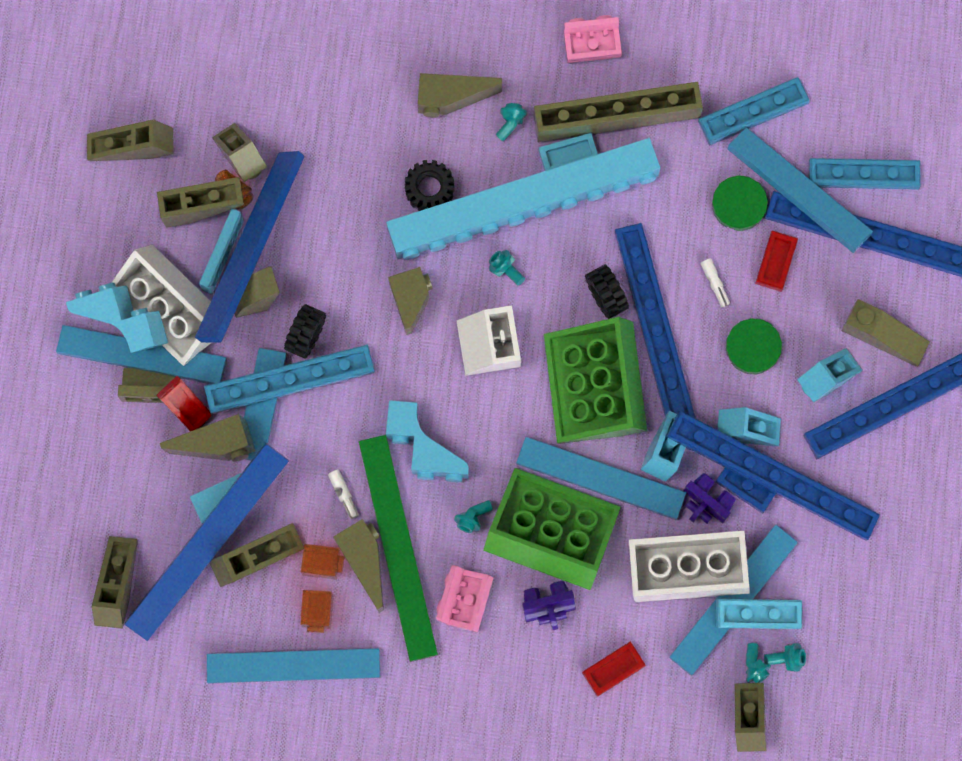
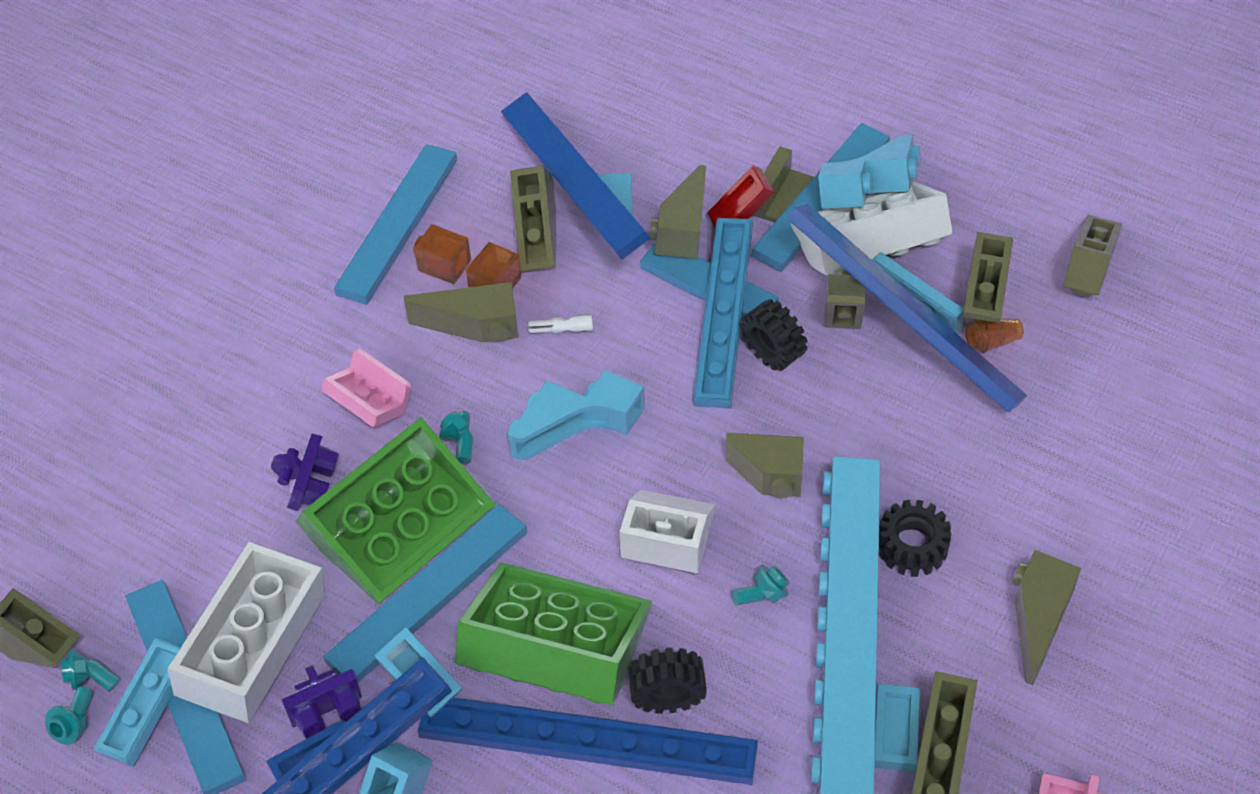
camera: 115 degrees right, 25 degrees down
(114, 583) = (575, 98): olive slope -> none
(240, 152) = (1039, 350): olive slope -> none
(398, 548) = (468, 354): green tile -> none
(513, 115) = (980, 668): teal plate -> none
(613, 669) = (191, 519): red tile -> none

